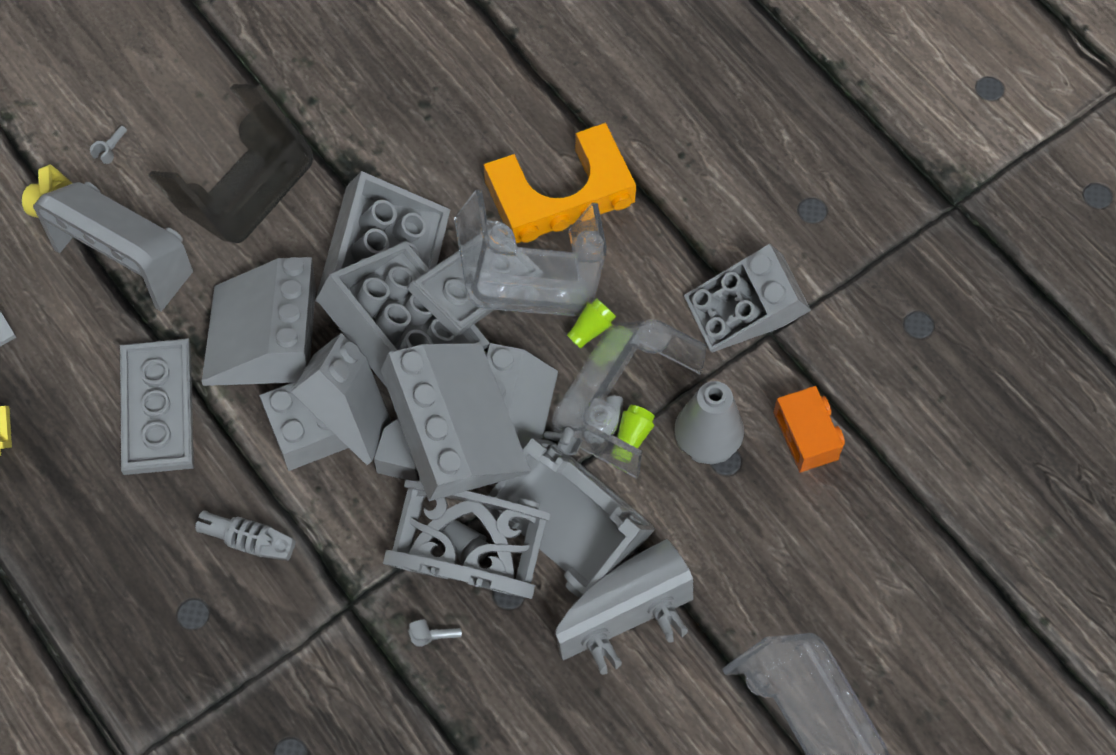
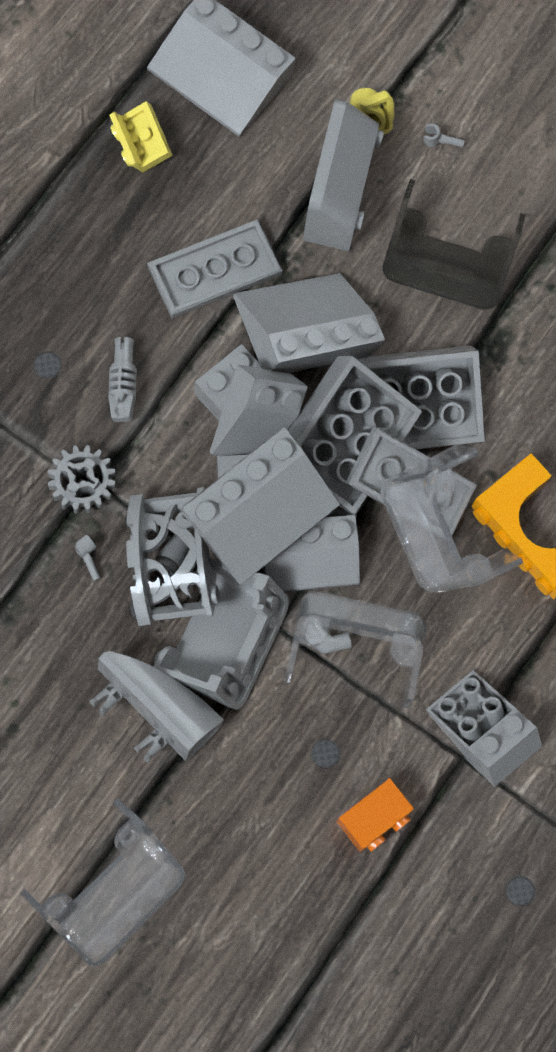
camera: 60 degrees right, 10 degrees up
(333, 621) = (91, 487): none -> light grey gear
(566, 441) = (289, 611): light grey hand -> none
(591, 323) = (414, 597): lime cone -> none
(635, 425) = (323, 664): lime cone -> none
(710, 425) = (348, 730): light grey cone -> none

